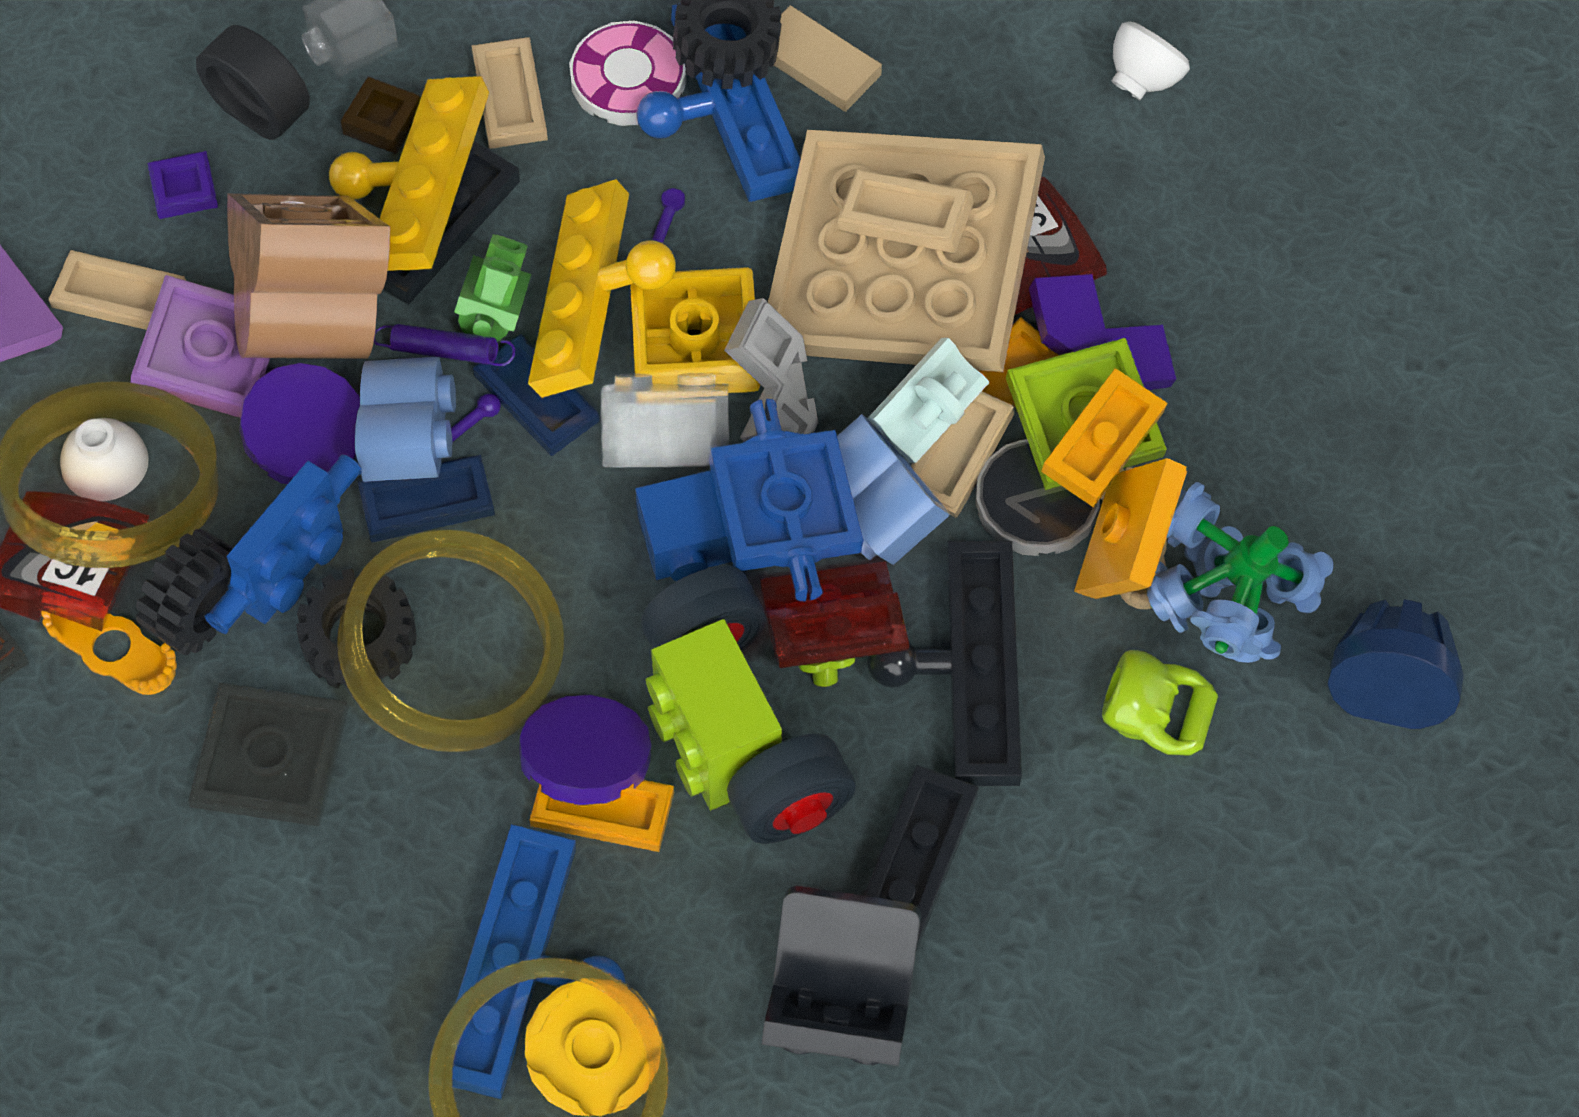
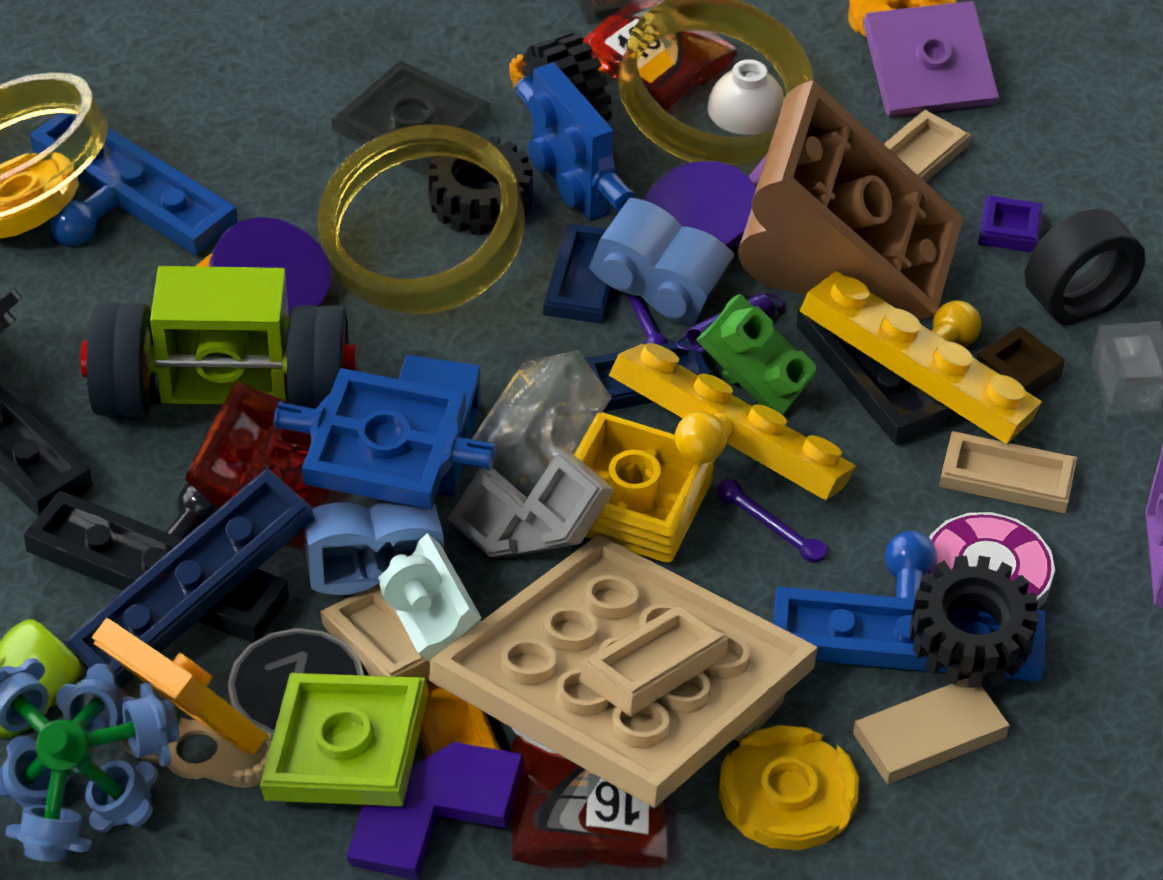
camera: 115 degrees right, 15 degrees down
(919, 98) = (786, 809): none -> yellow tile
(1001, 601) = (199, 570): none -> dark blue tile
(1104, 437) = (291, 710): light orange plate -> none

